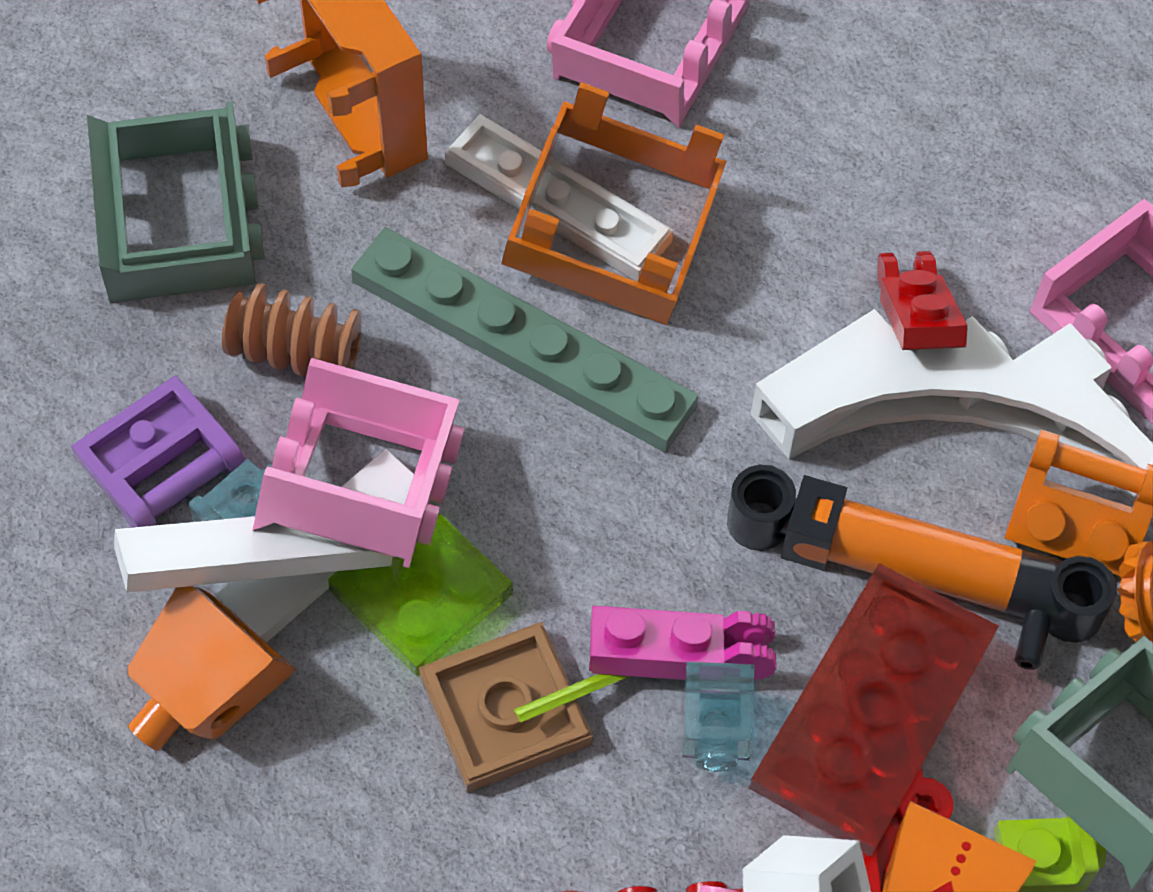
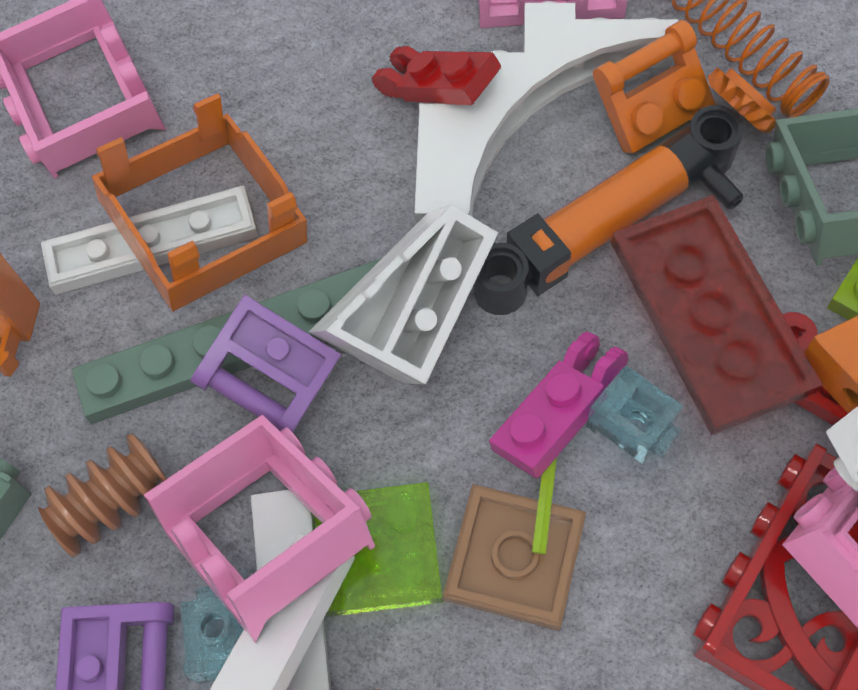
camera: 45 degrees left, 5 degrees up
(527, 368) = (275, 350): none -> medium lavender plate
(666, 437) = (411, 297): none -> white wedge

